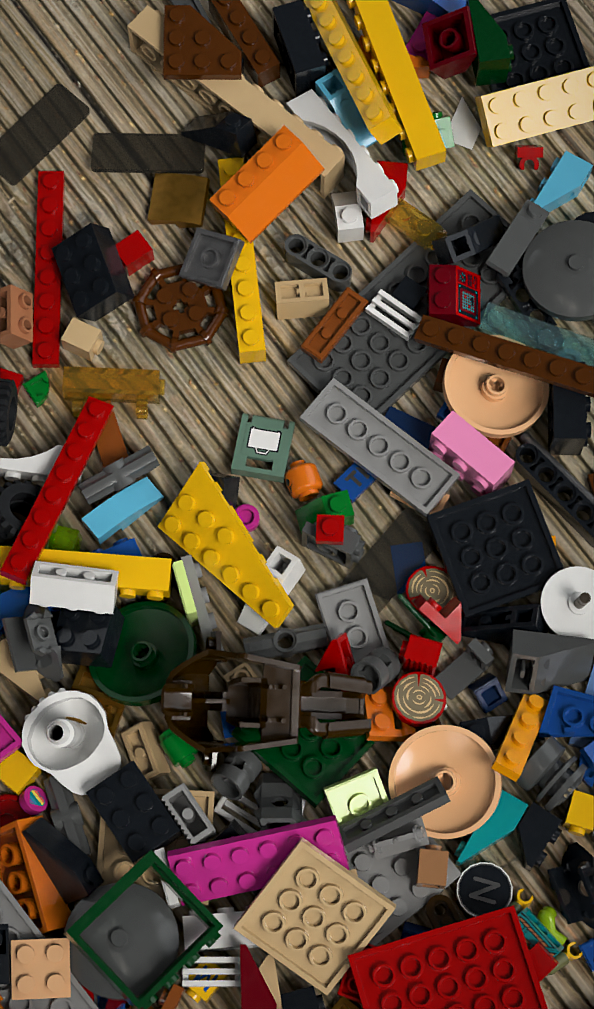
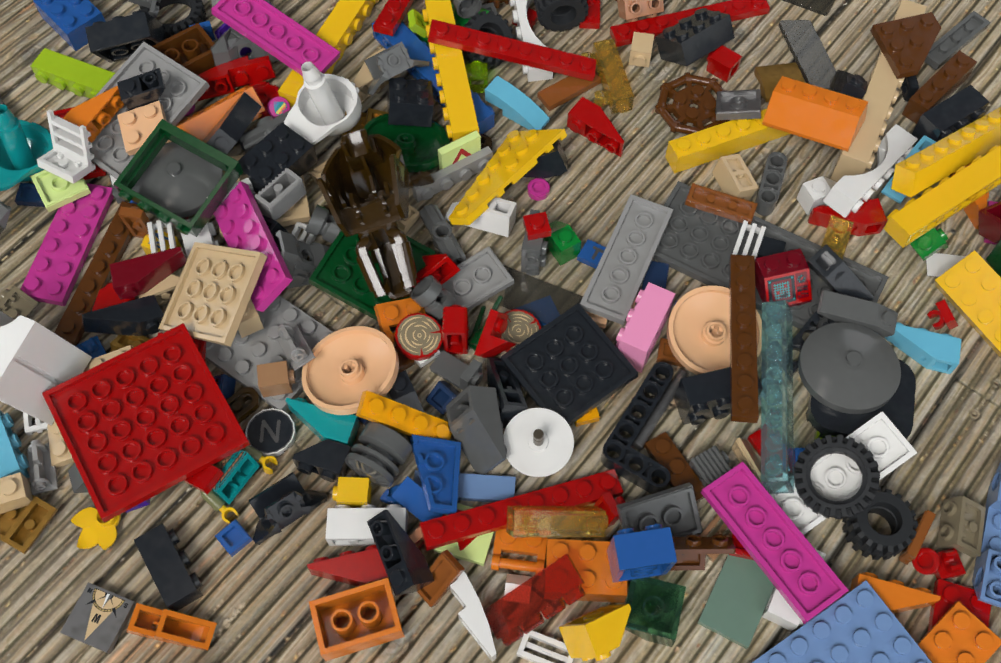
camera: 75 degrees right, 10 degrees down
(38, 388) = (593, 35): green tile -> none
(73, 587) = (434, 69): white brick -> none
(119, 474) = (541, 93): dark grey piece -> none
(177, 427) = (594, 124): none -> red slope
(263, 441) = (605, 184): sand green container -> none
(303, 480) = (582, 217): orange head -> none
(355, 795) = (317, 311): yellowish green tile -> none
(393, 814) = (310, 332): dark grey plate -> none
(547, 918) = (253, 486): lime arm -> none

